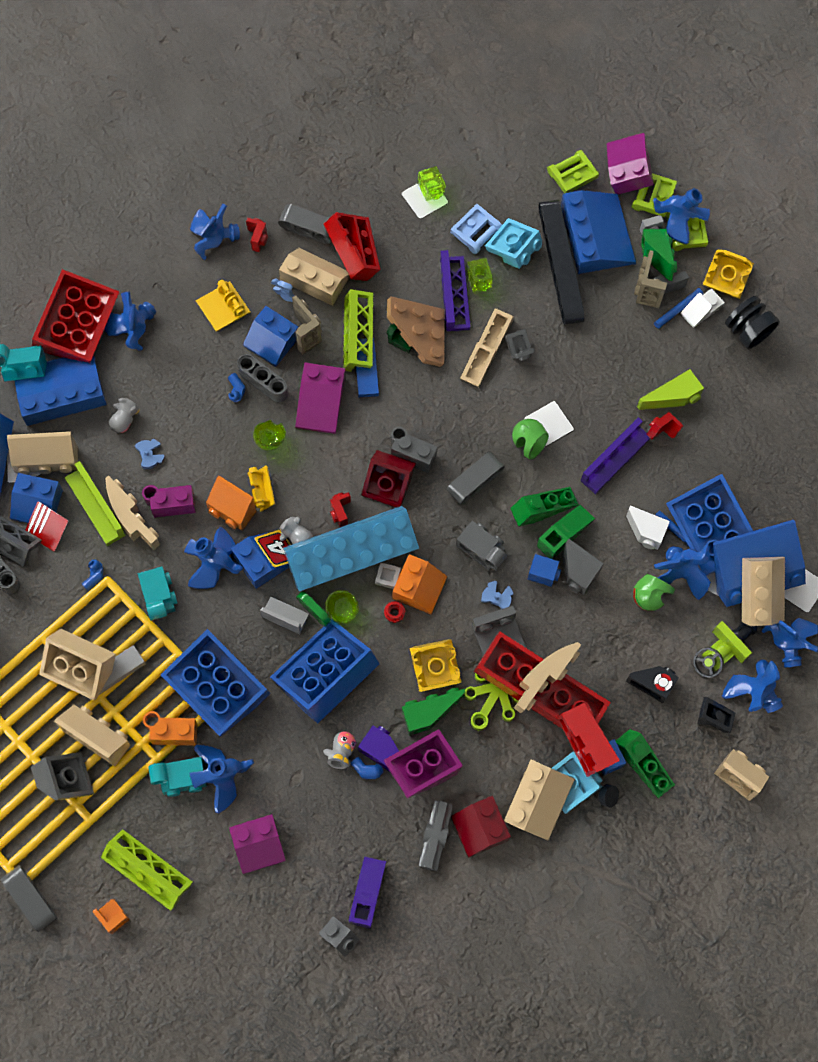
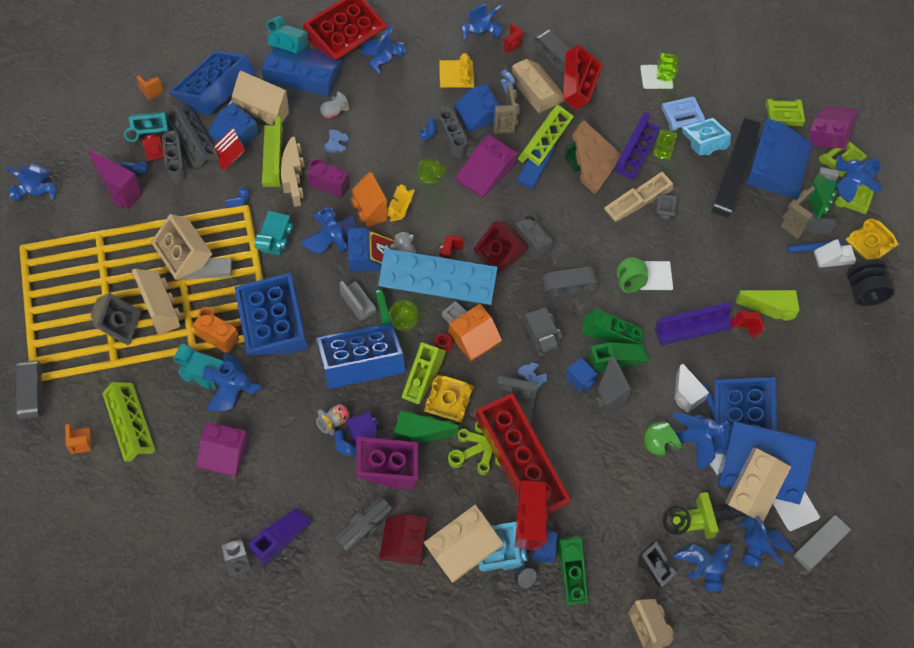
camera: 30 degrees right, 10 degrees down
(396, 654) = (423, 372): none -> lime slope
(551, 669) = (536, 441): tan slope -> none
(654, 681) = (620, 509): black slope -> none

